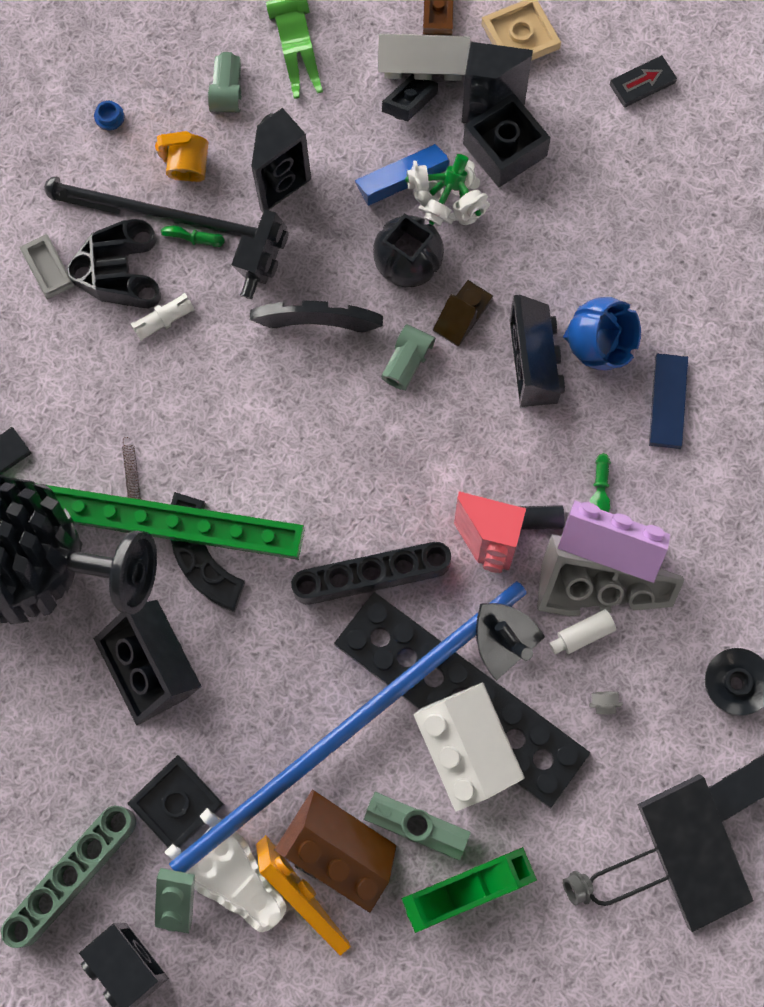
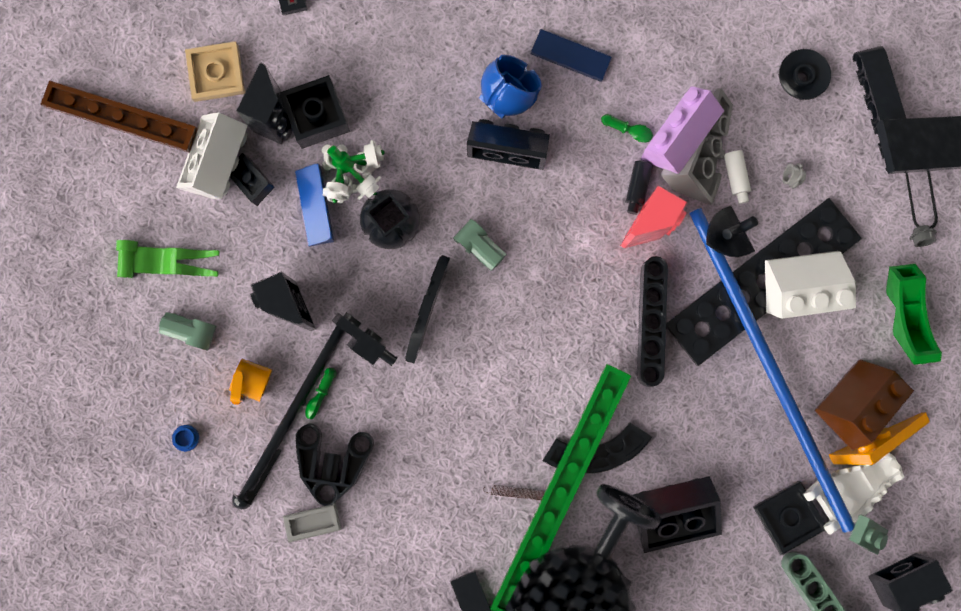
camera: 75 degrees left, 10 degrees up
(162, 316) = (387, 435): white pin -> none
(439, 834) = (842, 352): sand green piece -> none
(462, 312) = (453, 191): dark brown slope -> none

